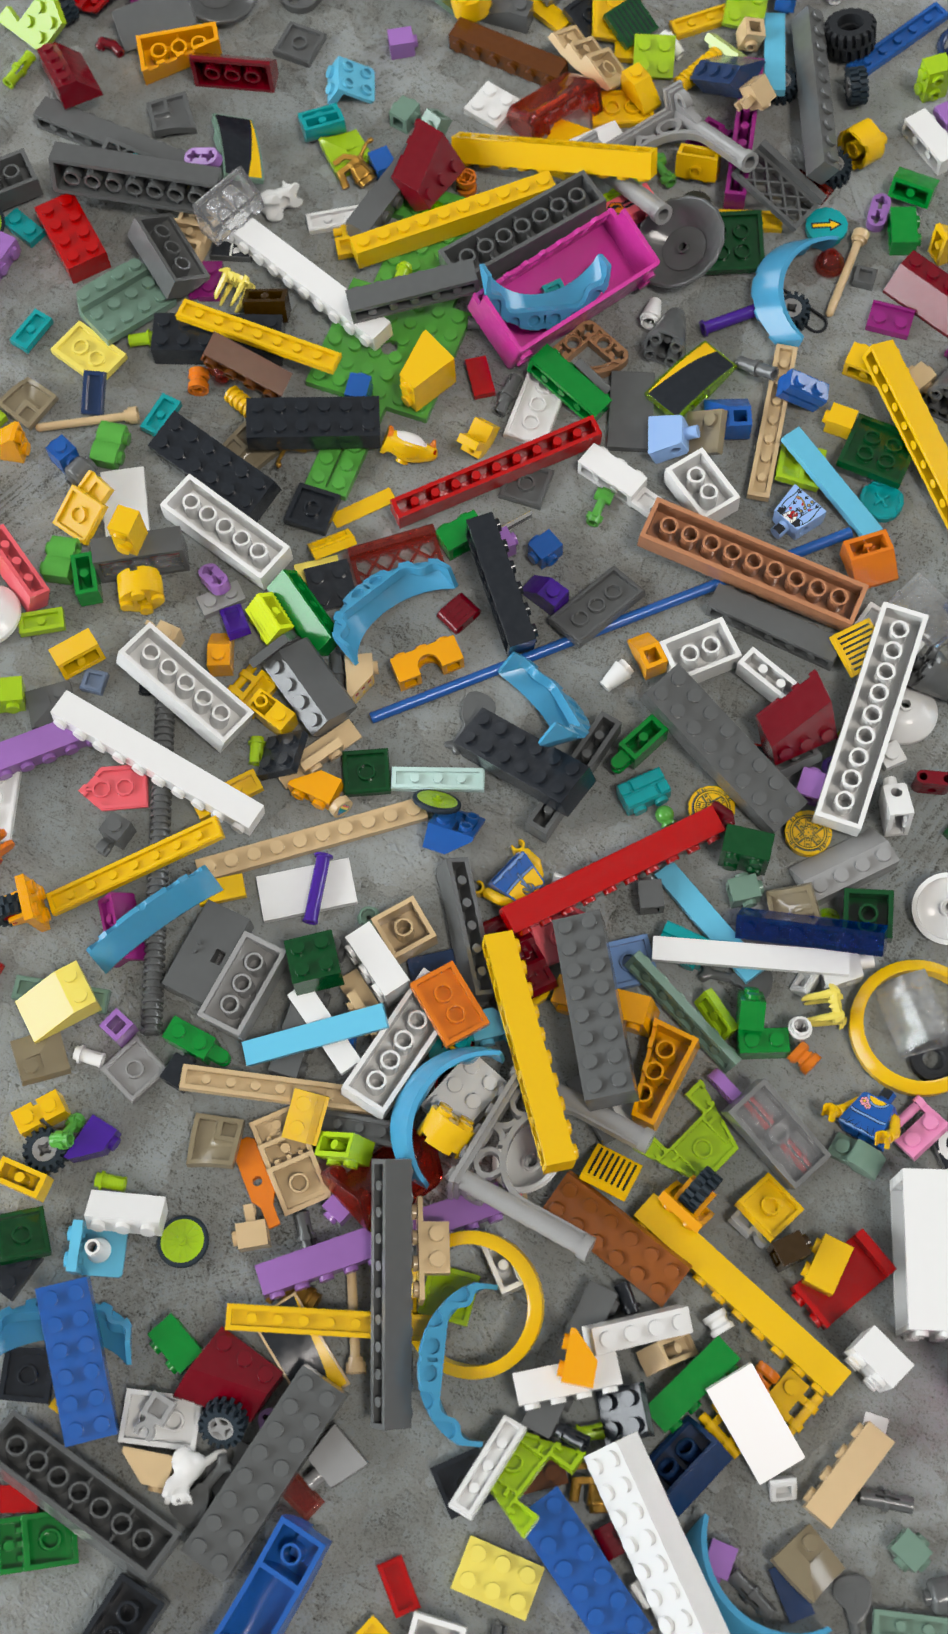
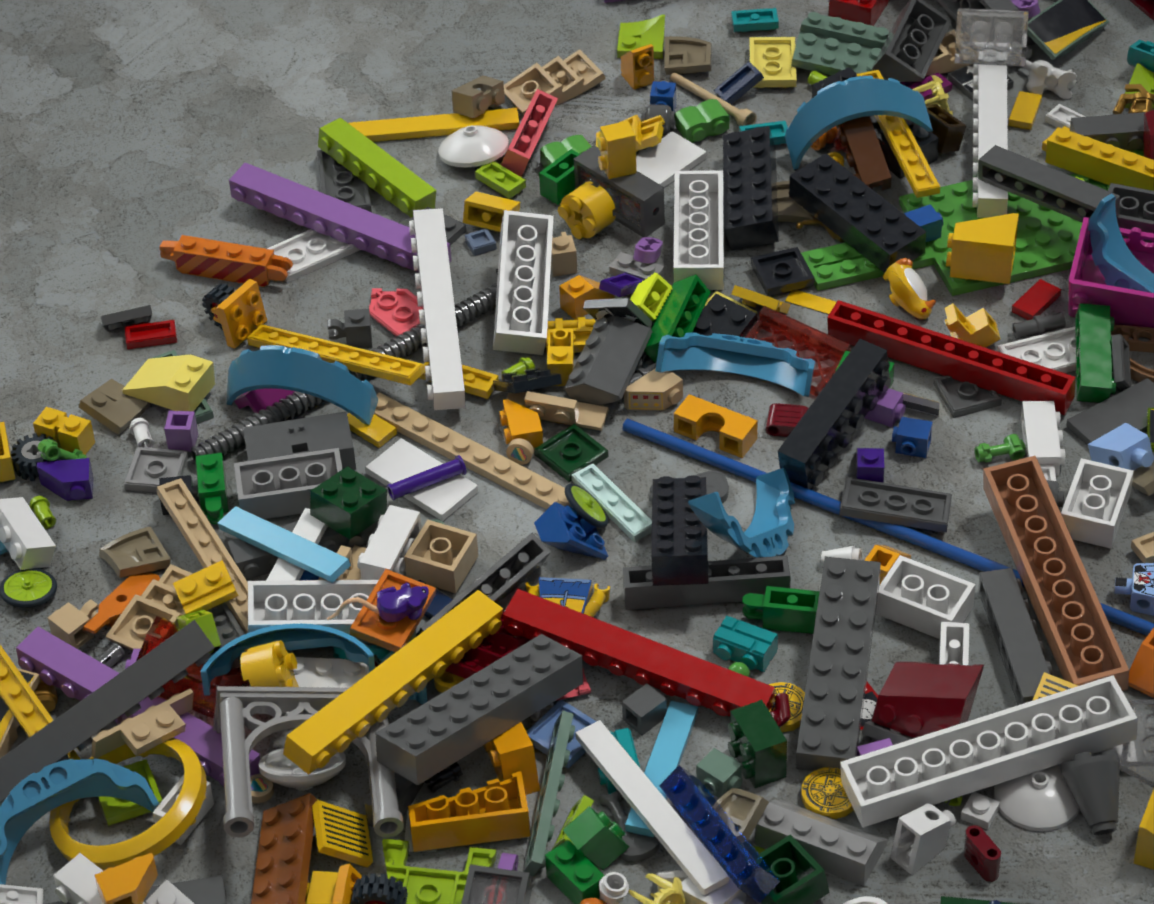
camera: 50 degrees right, 25 degrees down
(215, 350) = (851, 100): none -> dark azure windscreen
(288, 233) = (1025, 110): none -> yellow tile
(456, 1002) = (394, 604): none -> dark purple animal

